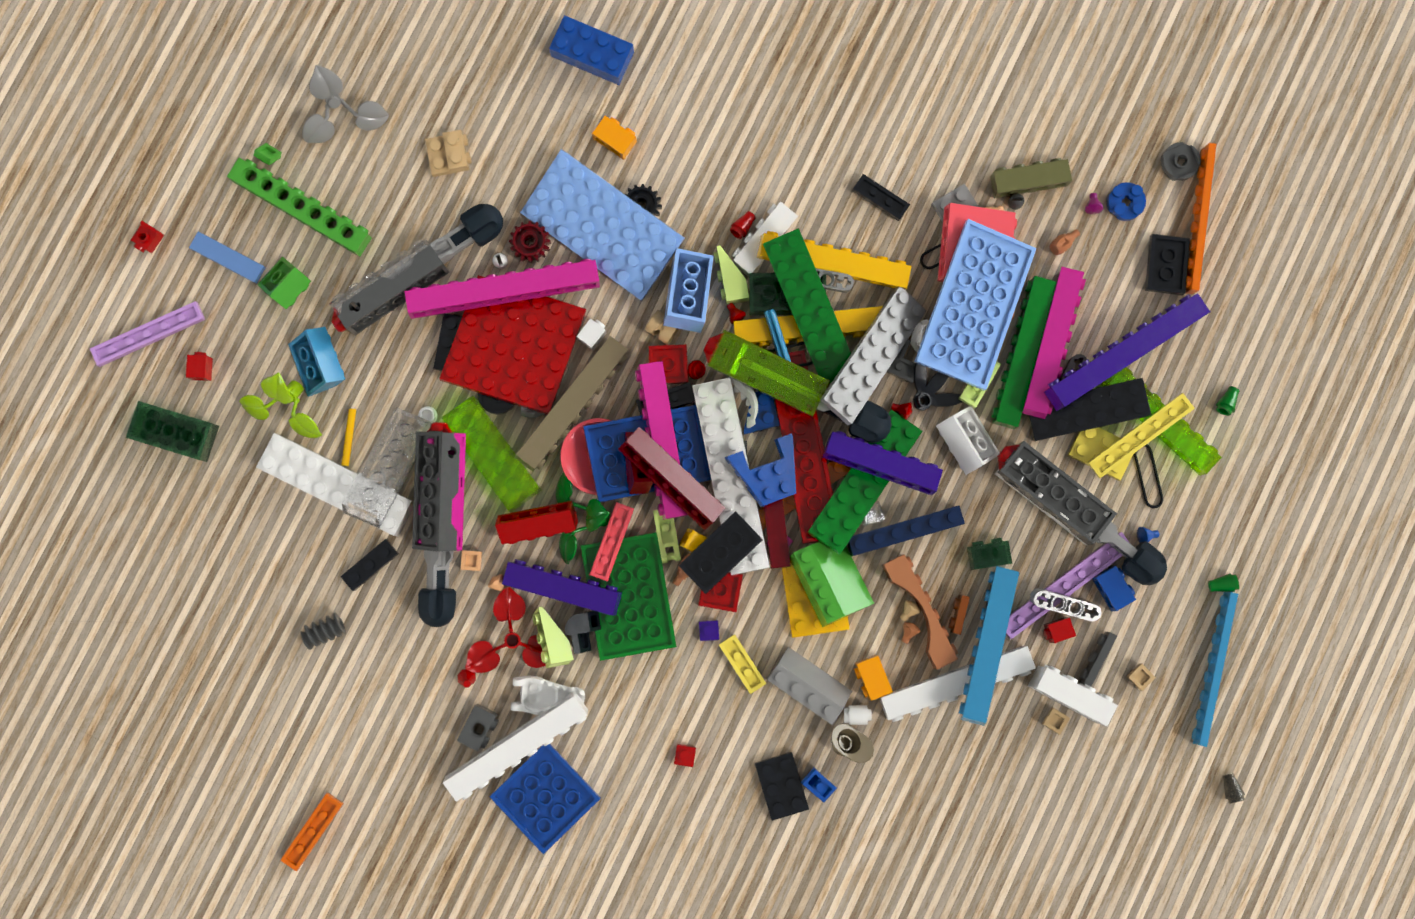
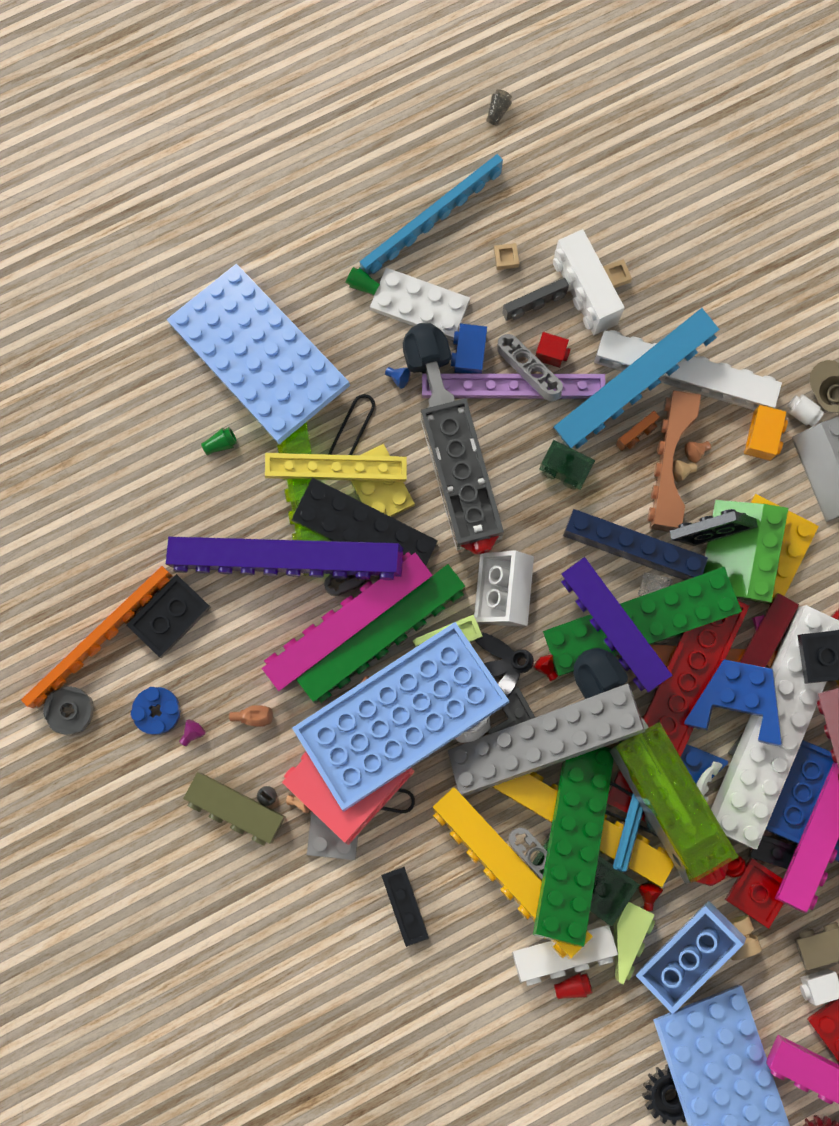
camera: 140 degrees left, 5 degrees down
(867, 572) = (713, 528): none -> plate
(1173, 598) = (419, 302): none -> white plate
(1254, 478) = (258, 353): none -> light blue plate

